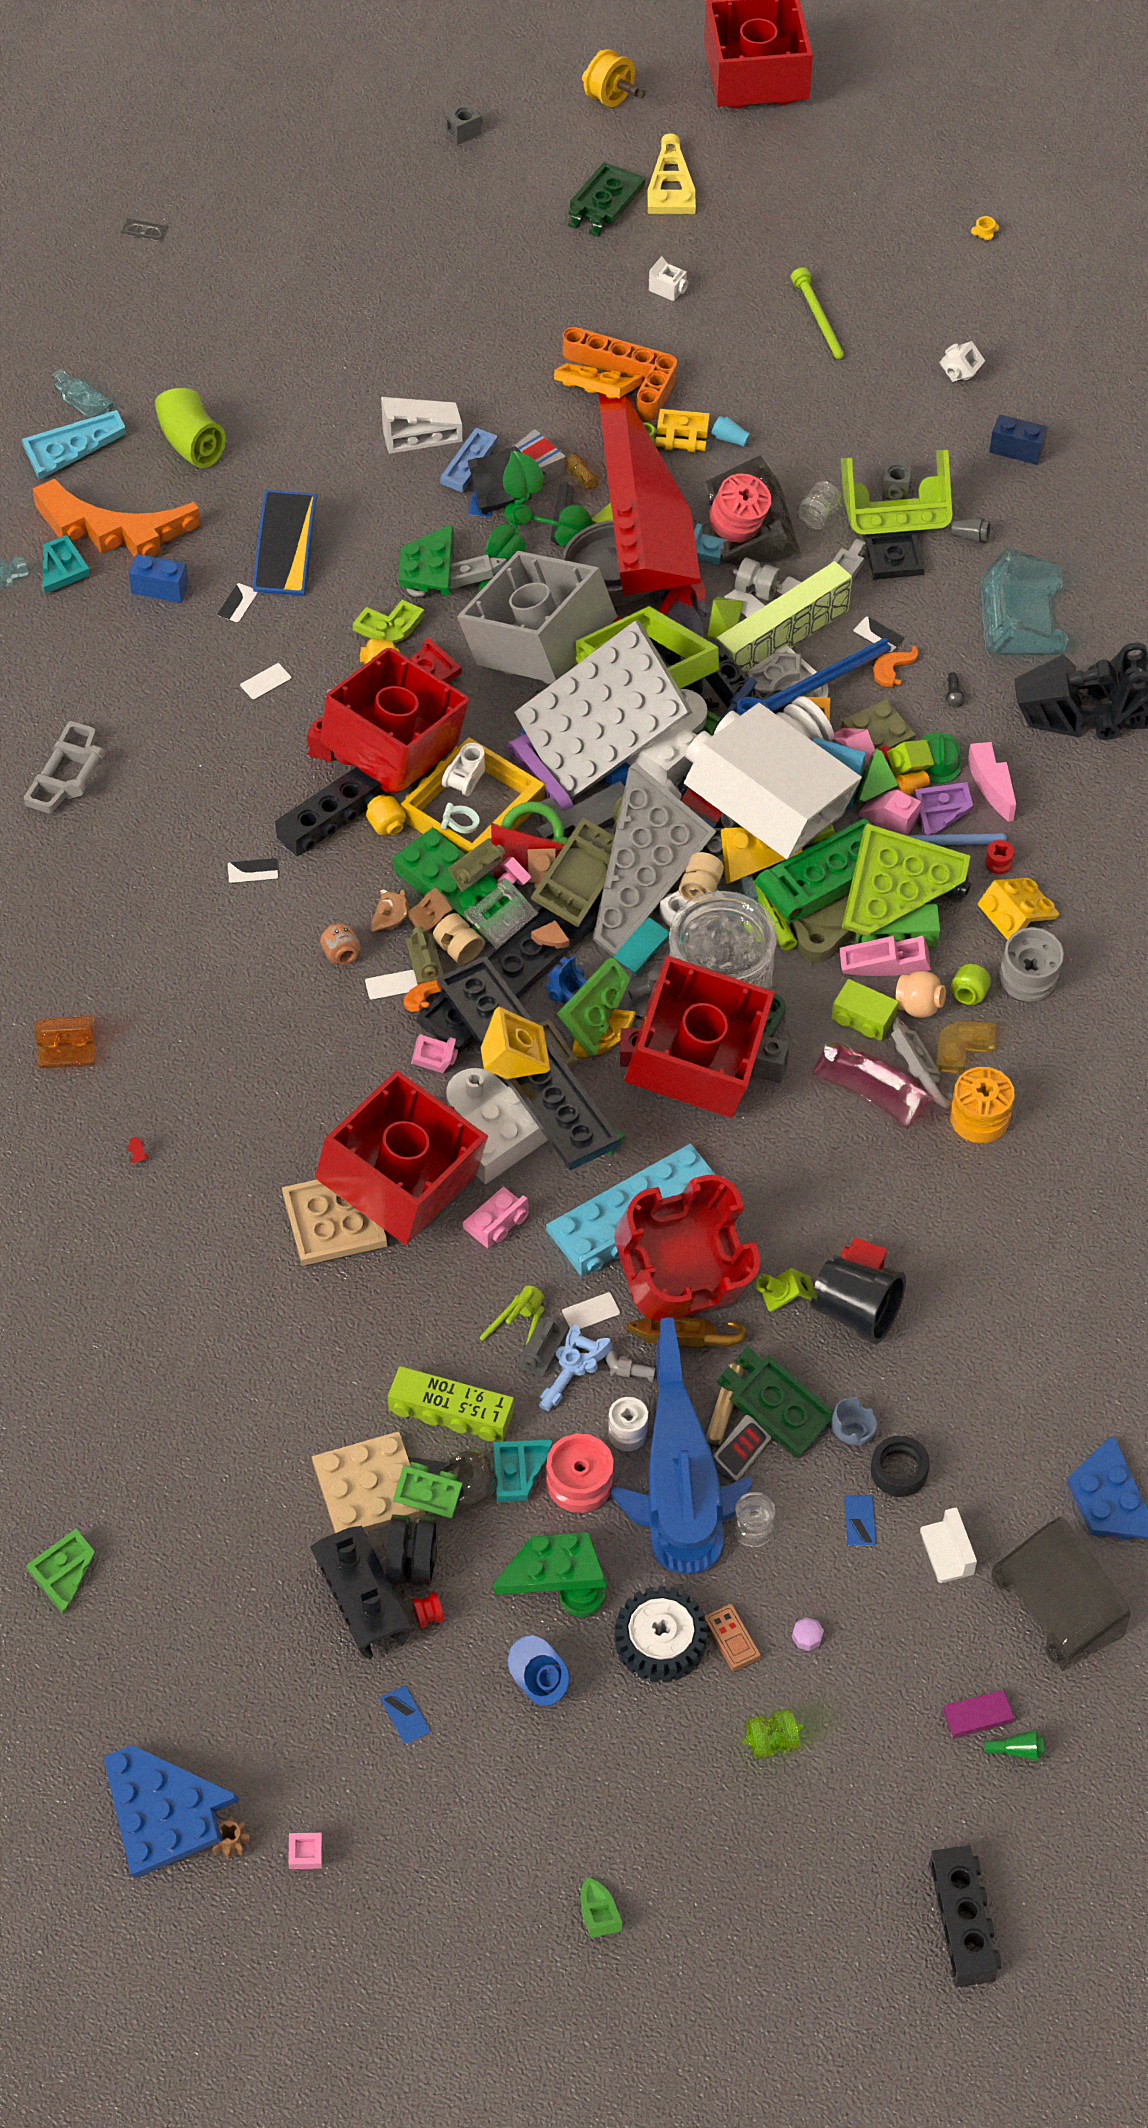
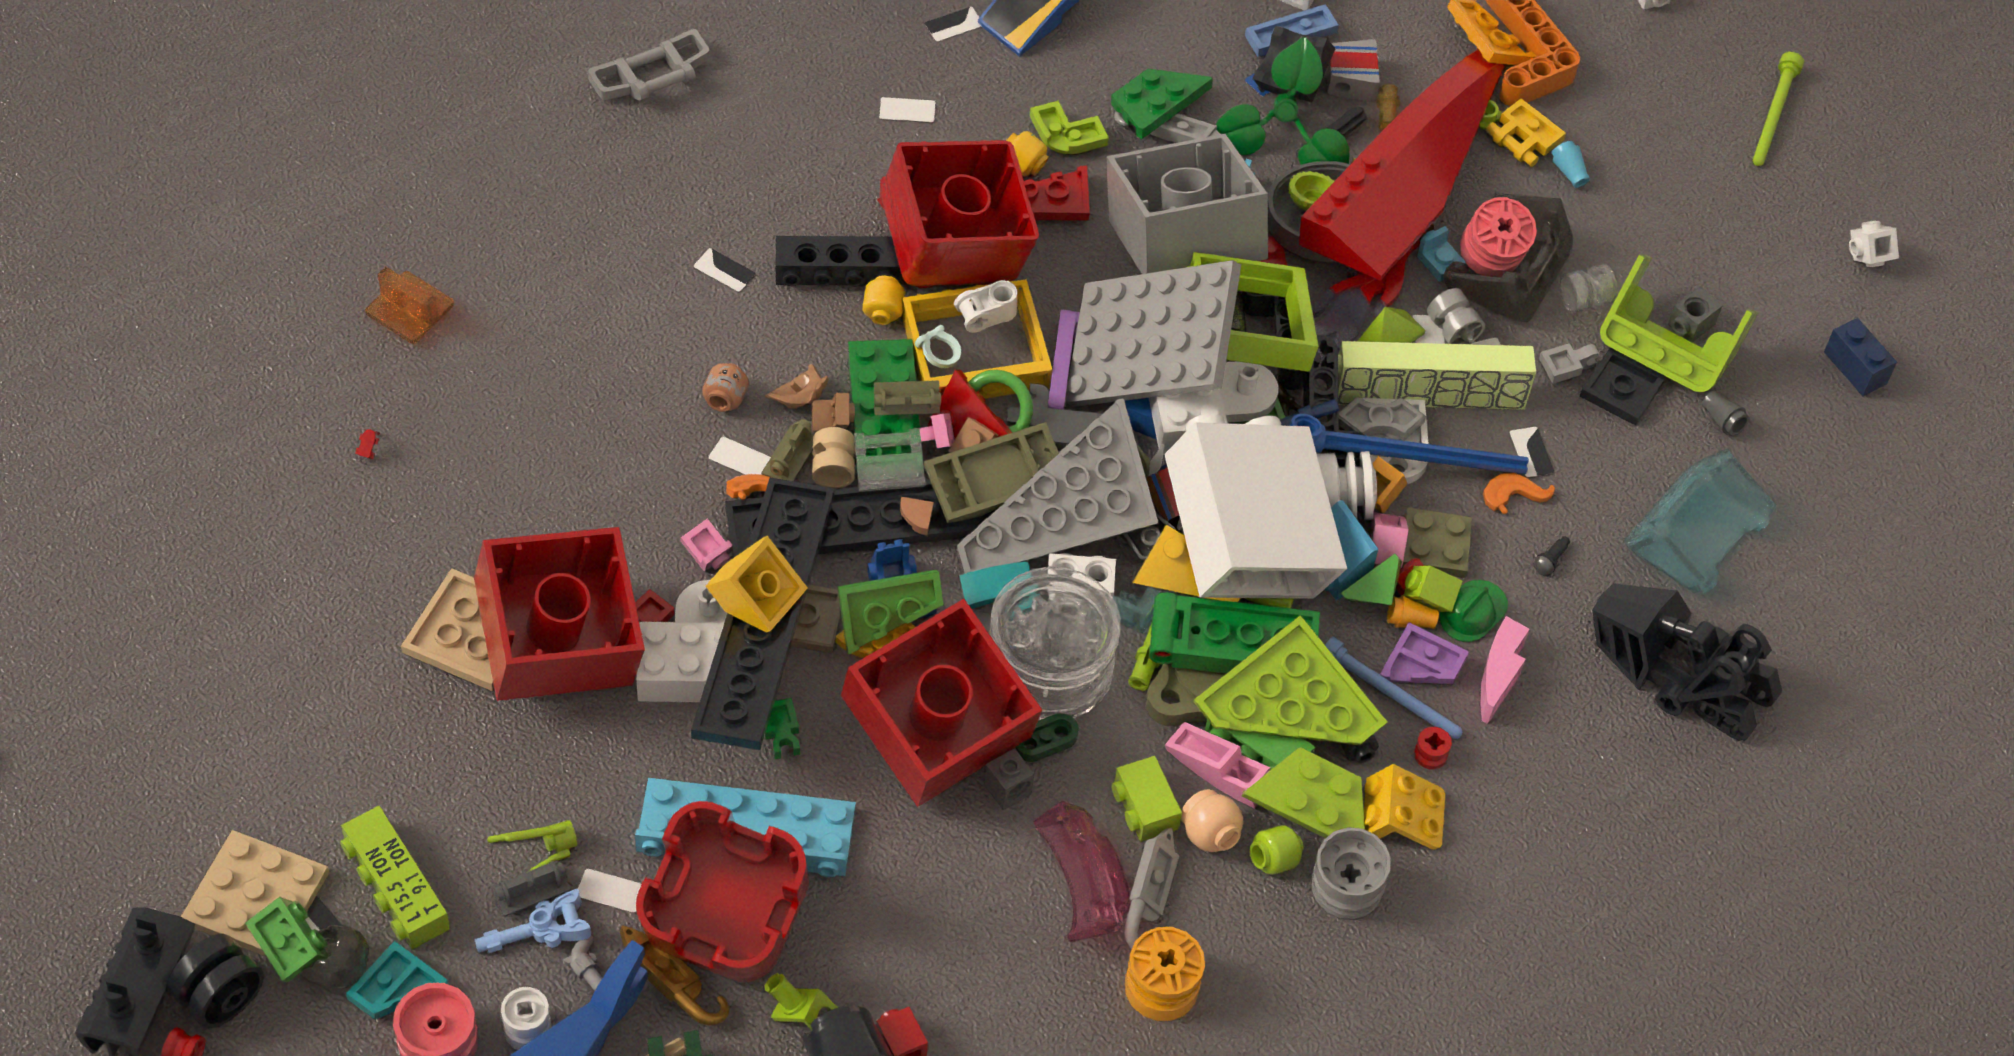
camera: 35 degrees right, 0 degrees up
(496, 1217) = (613, 738): bright pink bracket -> none
(596, 554) = (1307, 188): none -> lime hat
(701, 875) = (1103, 557): tan wheel -> none
(892, 811) = (1368, 631): bright pink slope -> none
(960, 1037) = (1218, 894): clear yellow plate -> none
(963, 934) = (1311, 793): none -> lime wing

